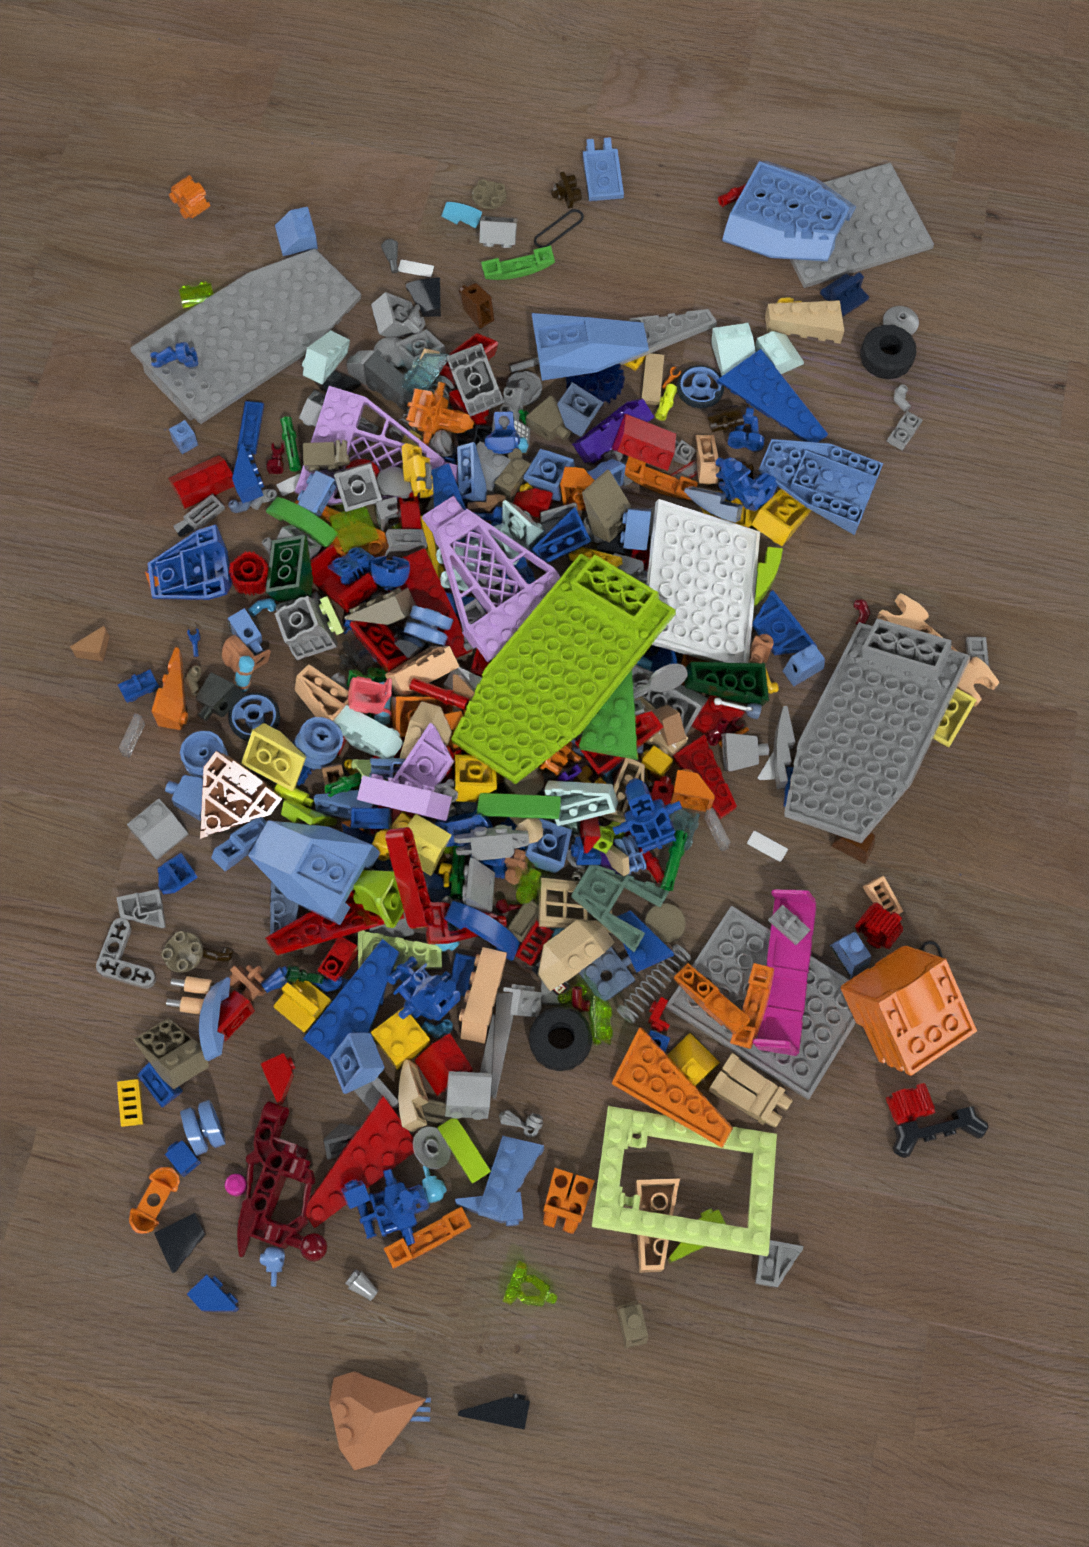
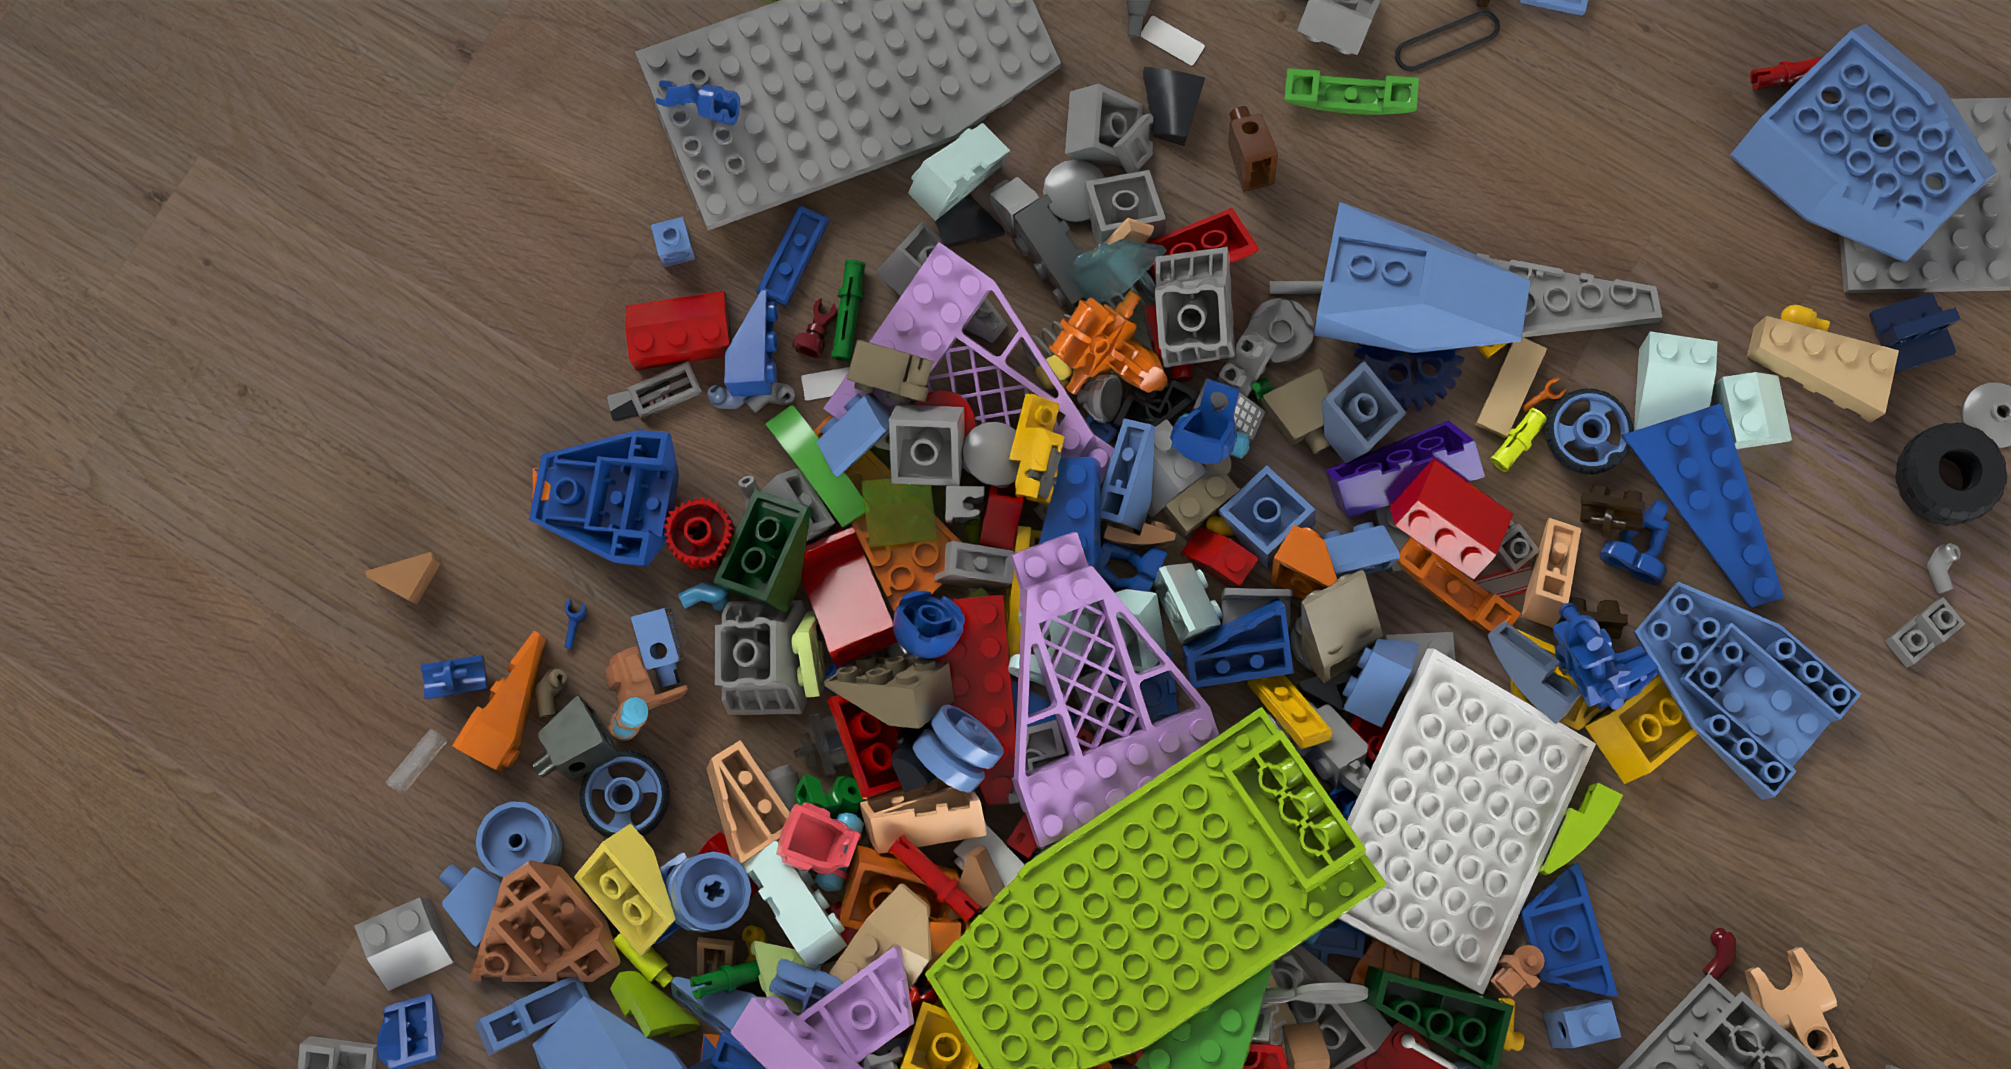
camera: 25 degrees right, 10 degrees up
(347, 565) = (872, 577): blue hinge -> none

